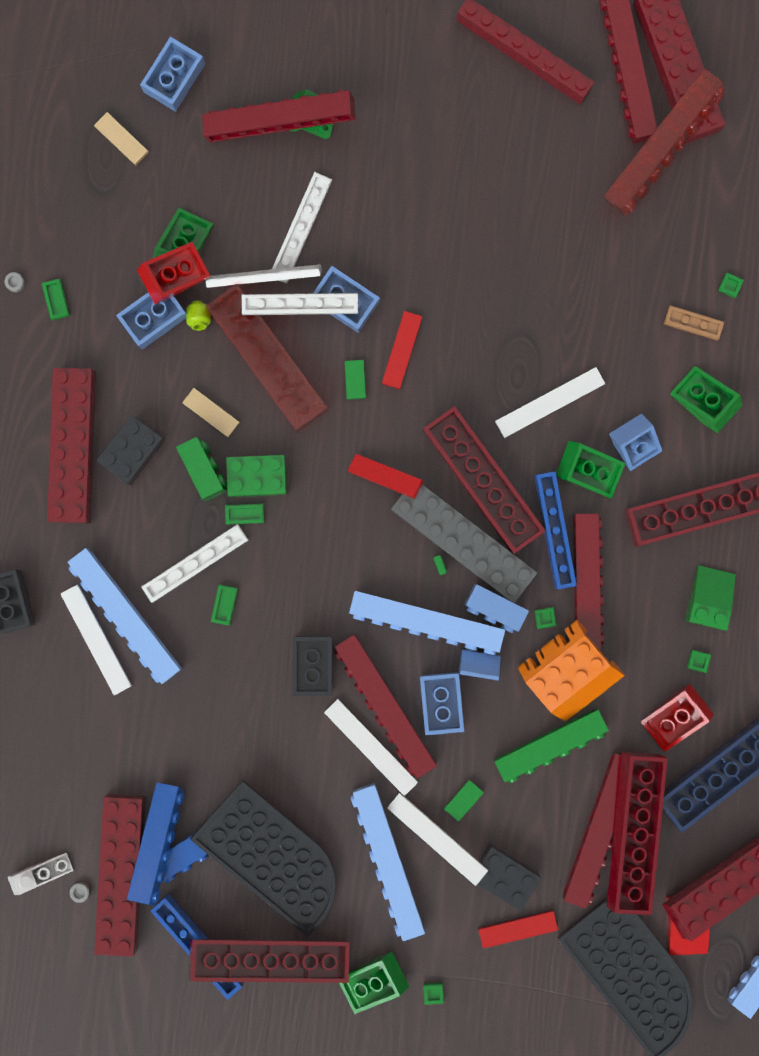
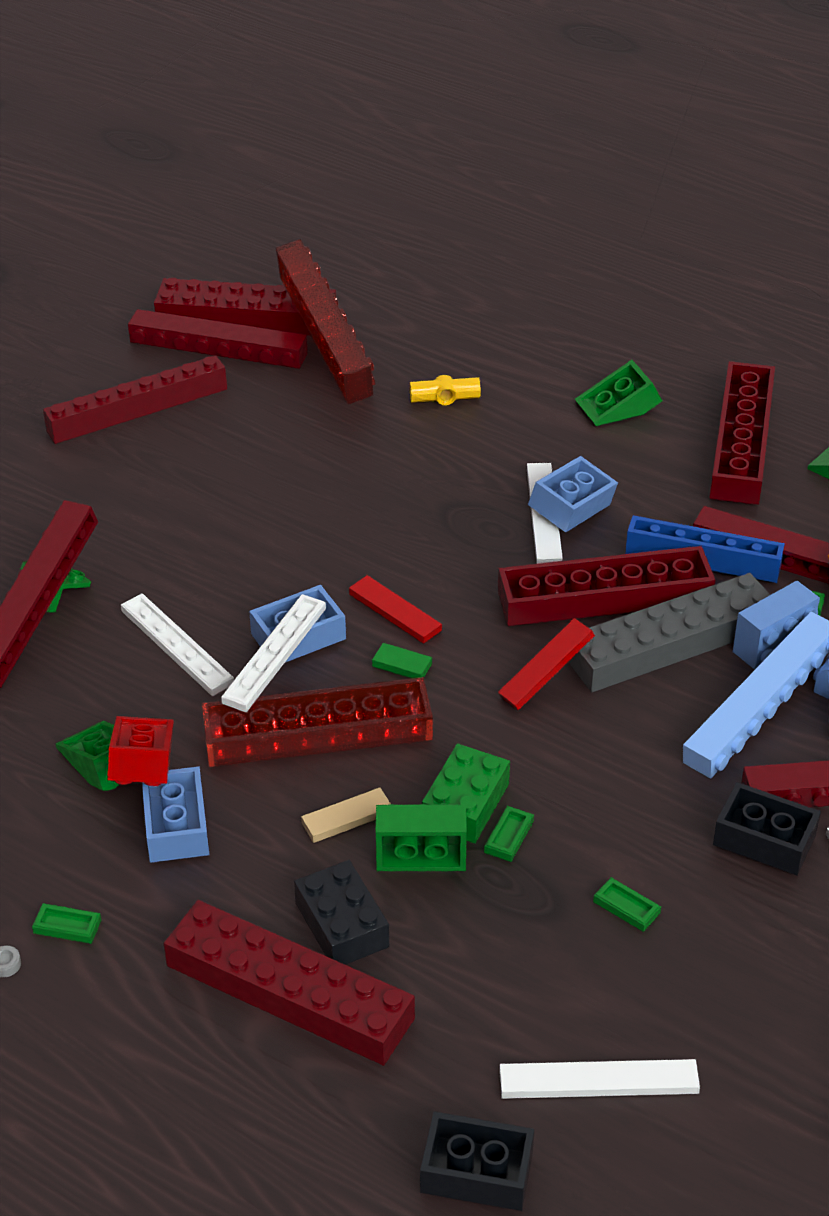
camera: 65 degrees left, 45 degrees down
(124, 615) = (580, 1020): light blue brick -> none
(194, 563) = (548, 917): white tile -> none
(198, 316) = (214, 771): lime head -> none
(264, 275) = (210, 684): white tile -> none
(439, 565) = (691, 664): green tile -> none
(565, 418) = (572, 493): none -> medium blue brick
(590, 469) = (641, 499): green slope -> none
(636, 442) = (633, 459): medium blue slope -> none
(652, 267) = (444, 390): none -> yellow piece
(693, 323) = (526, 385): medium nougat tile -> none
(730, 285) = (504, 350): green tile -> none

